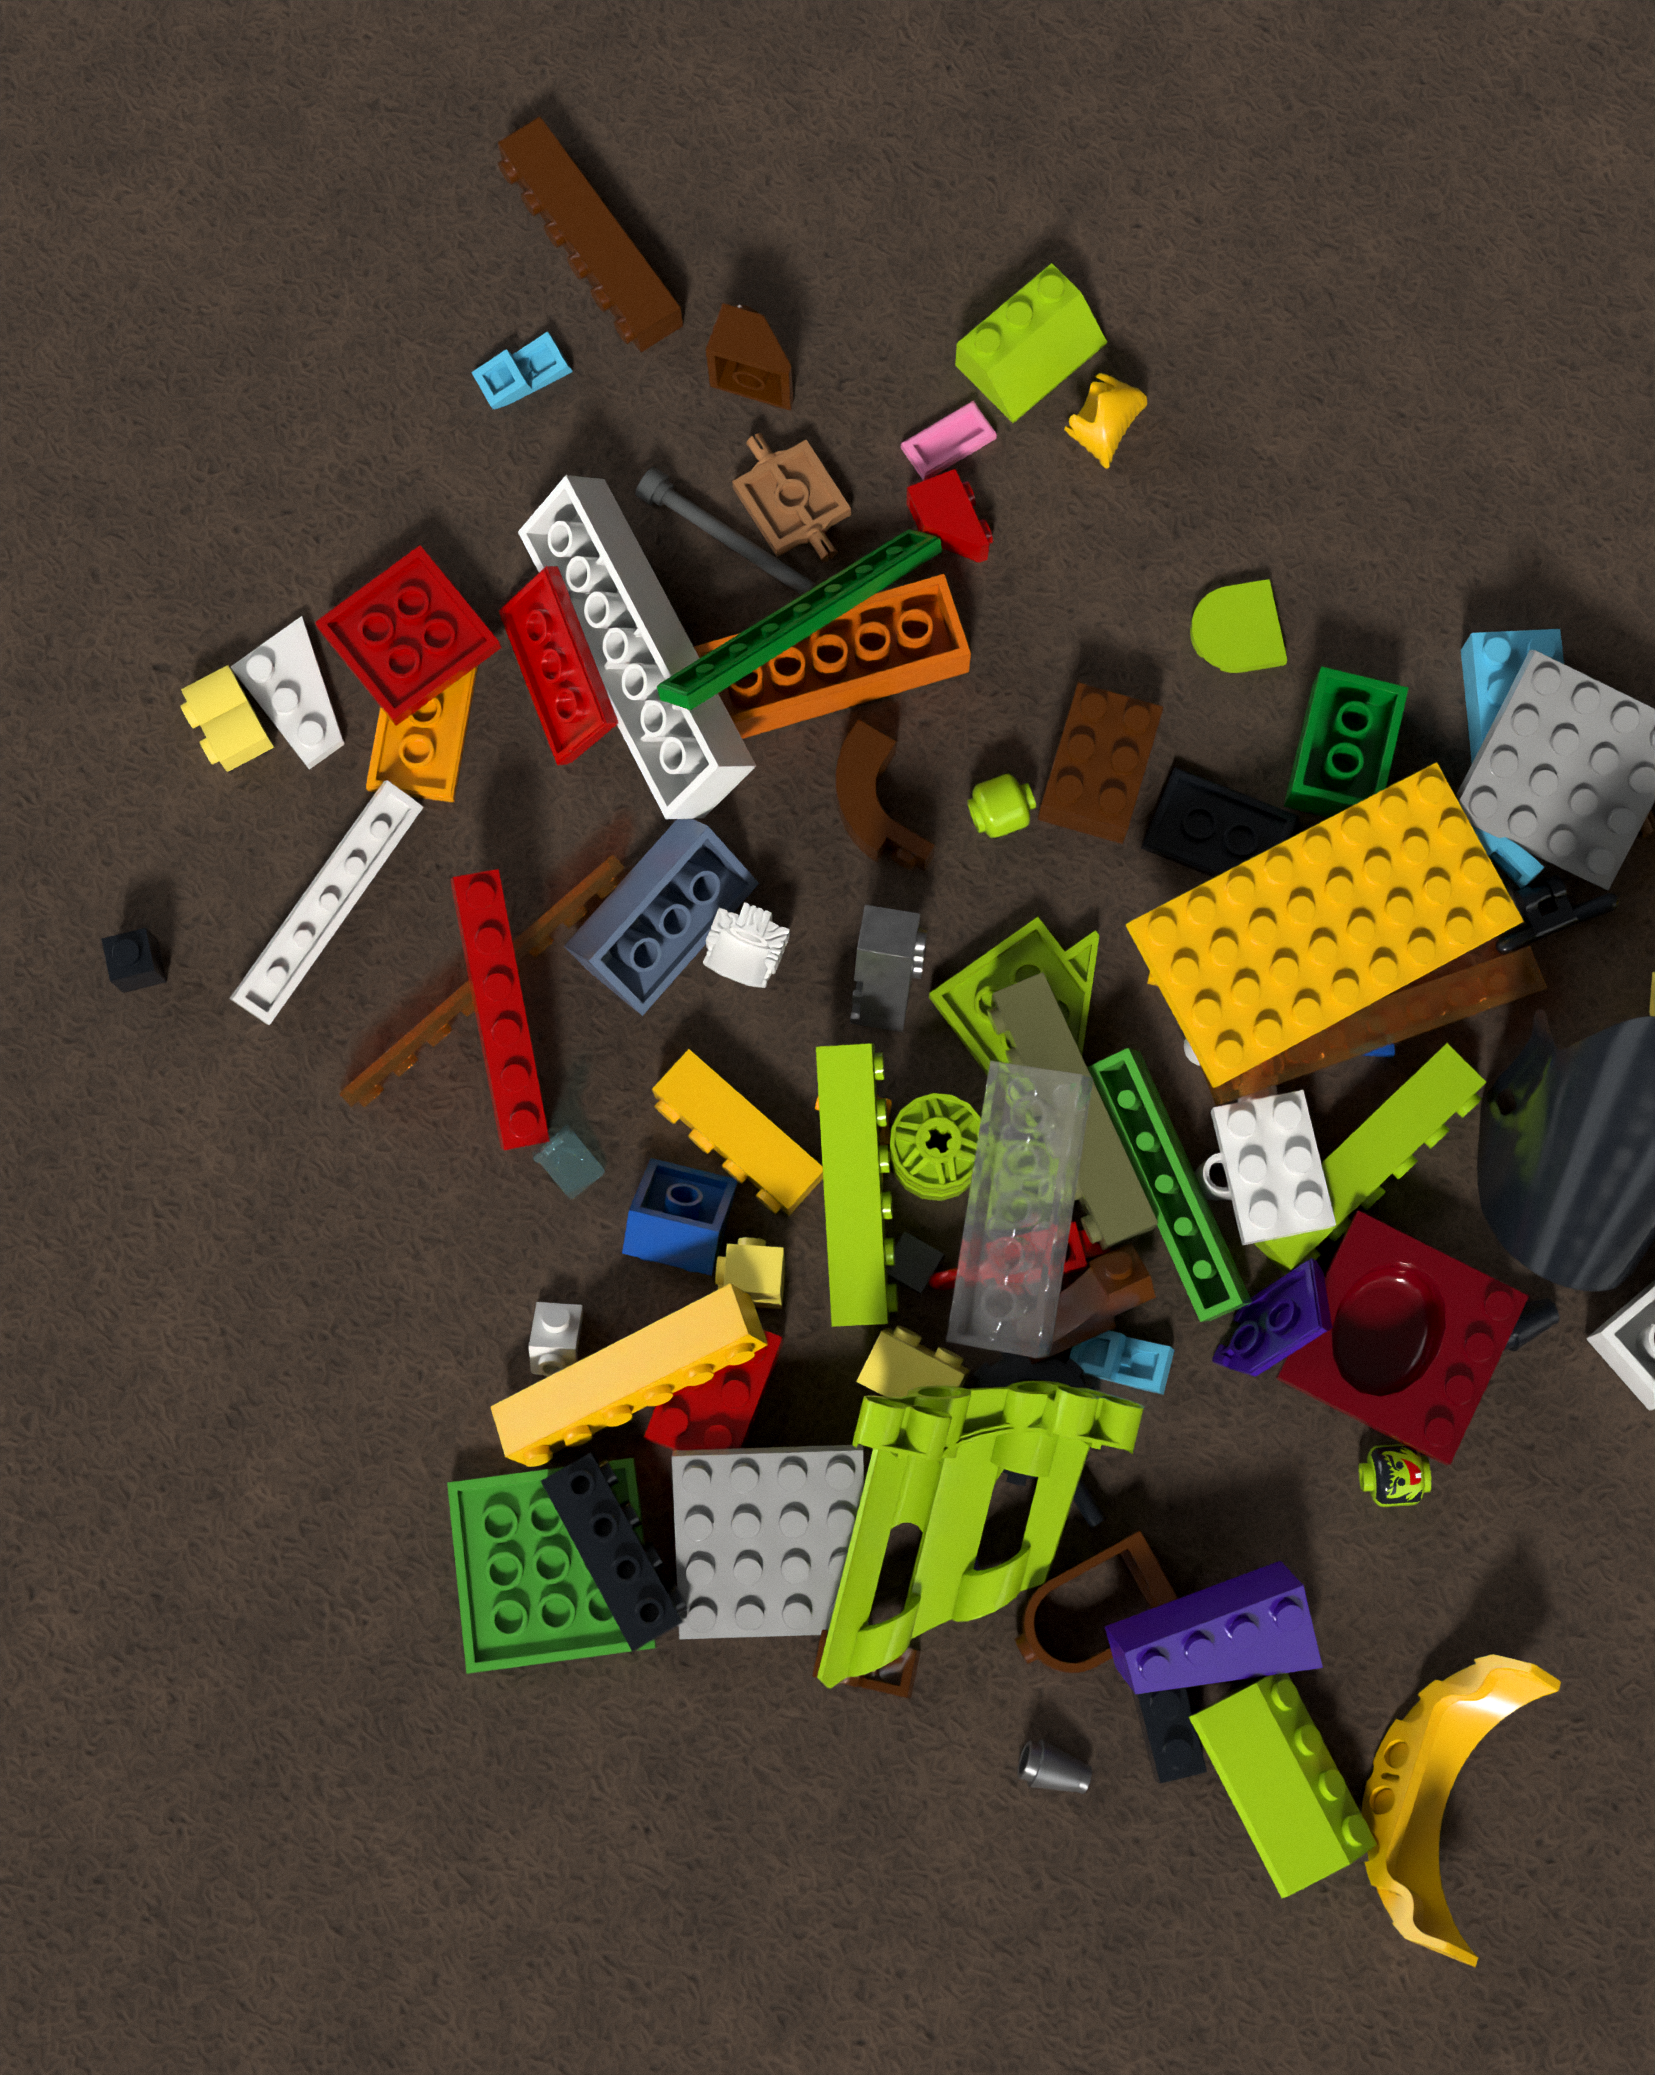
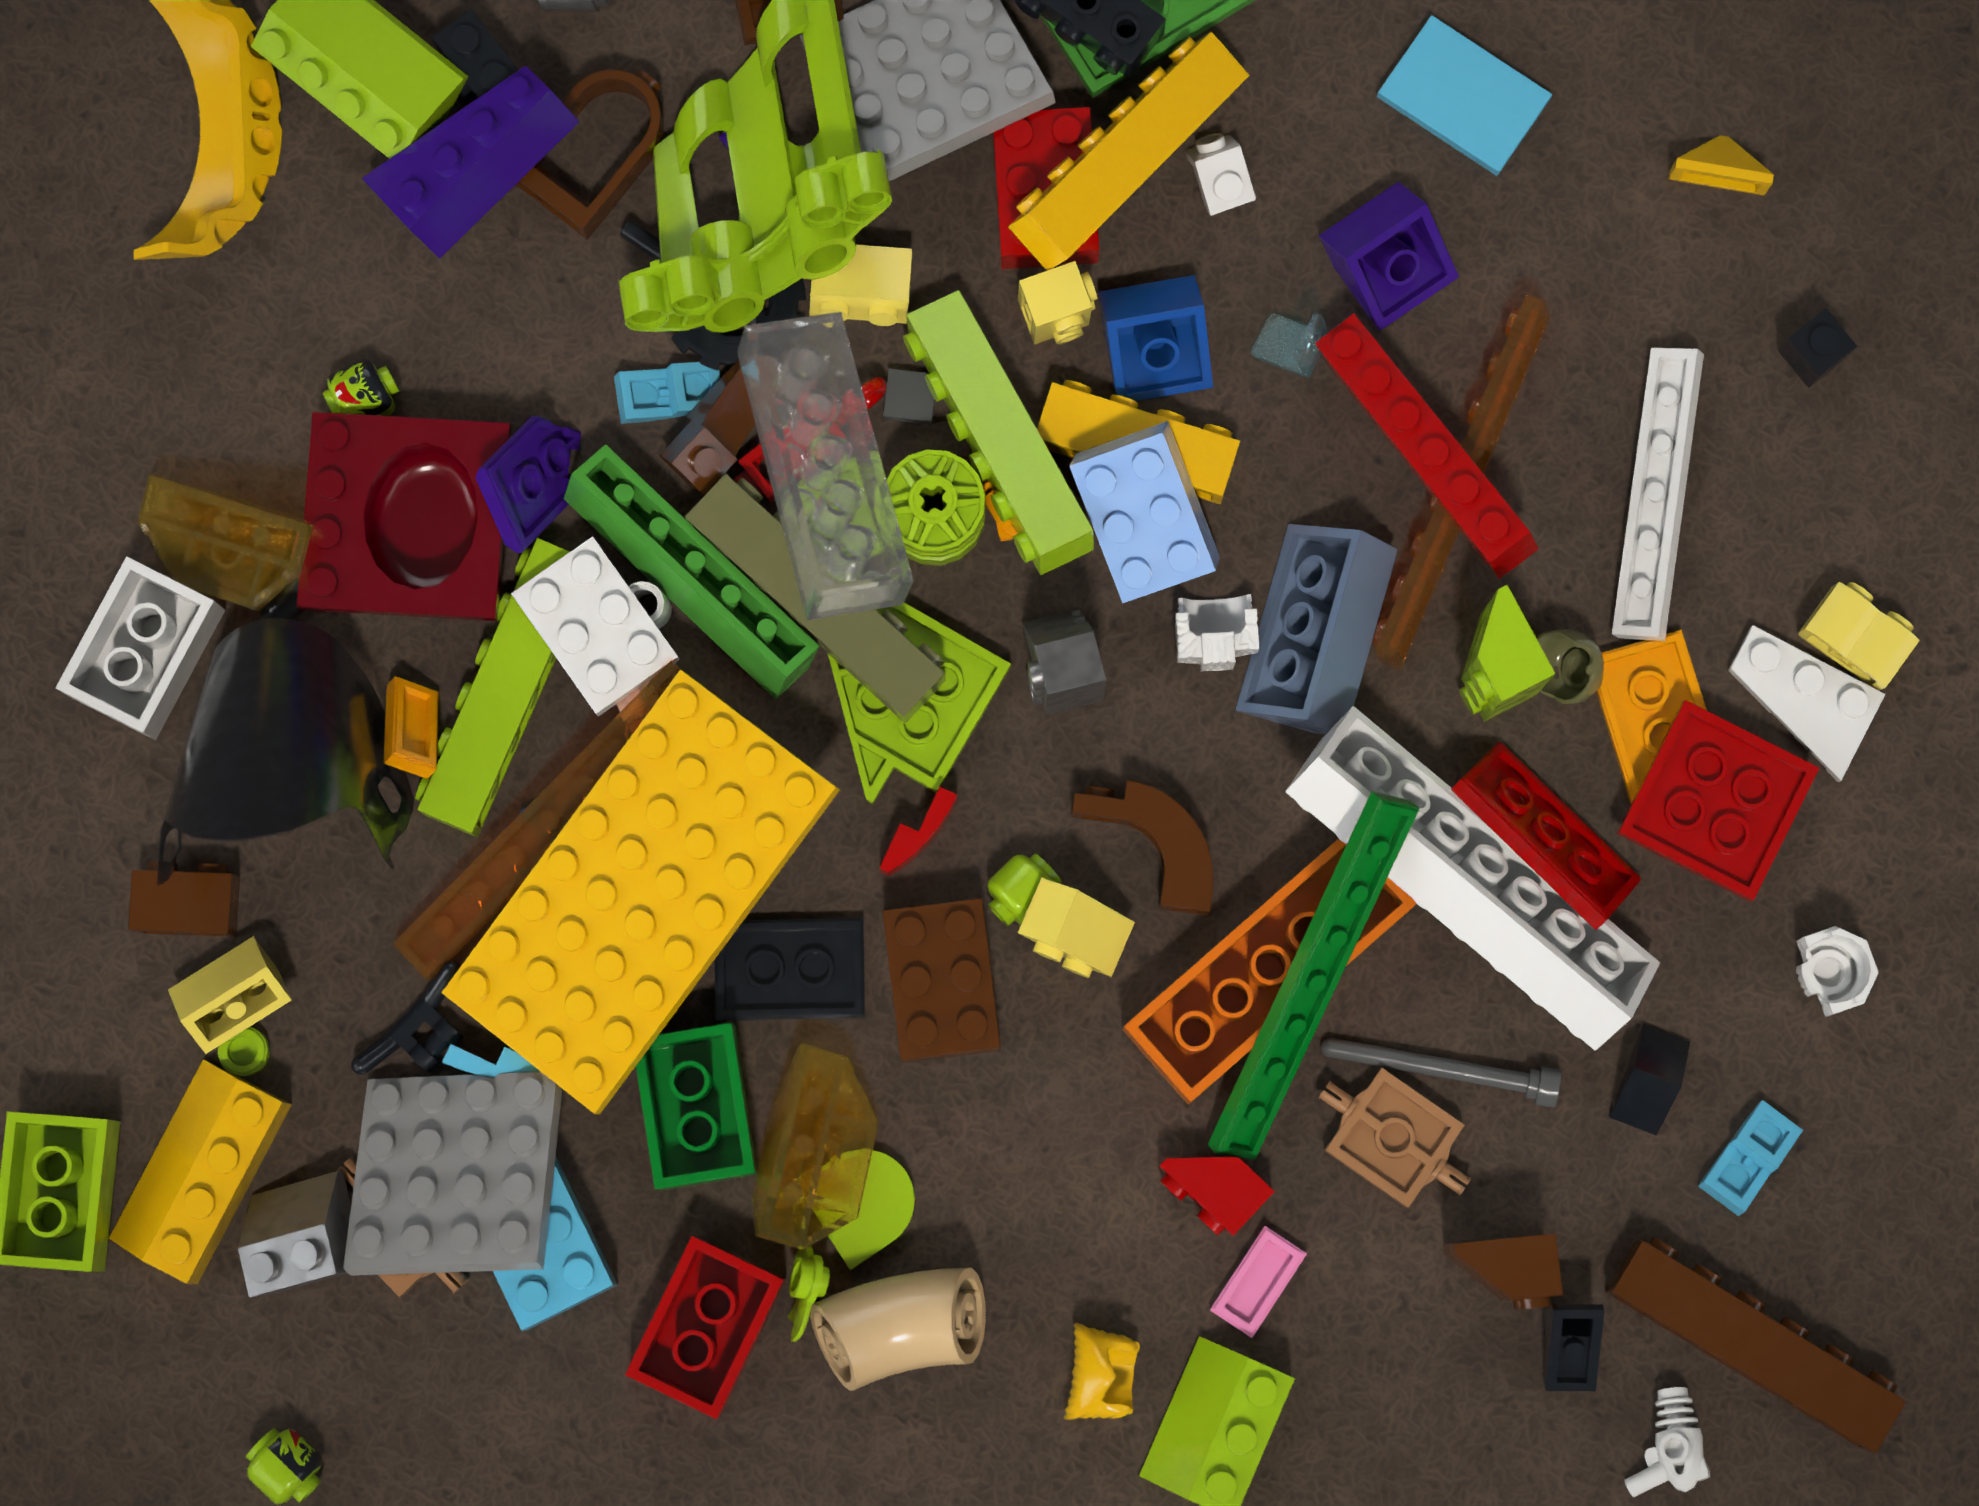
camera: 155 degrees right, 5 degrees up
(126, 1155) = (1724, 166): none -> yellow slope
(313, 1315) = (1464, 95): none -> medium azure tile
(382, 471) = (1836, 969): none -> white hair
(447, 1201) = (1390, 254): none -> dark purple slope
(465, 787) = (1578, 665): none -> olive hair
(526, 804) = (1503, 660): none -> lime slope
(569, 451) = (1651, 1080): none -> black slope
(685, 189) = (1677, 1450): none -> white piece
(728, 283) = (1572, 1346): none -> black slope
(761, 1059) = (1145, 512): none -> light blue brick
(975, 750) = (1076, 928): none -> light yellow brick
(1076, 884) = (910, 843): none -> red slope
(1247, 512) = (901, 1324): none -> tan brick
(1267, 666) = (814, 1151): none -> clear yellow wedge
(1312, 570) = (806, 1283): none -> lime plate
(1406, 576) = (705, 1327): none -> red brick
(1464, 1155) = (411, 727): none -> light orange tile
(1567, 1389) = (223, 541): none -> clear yellow wedge

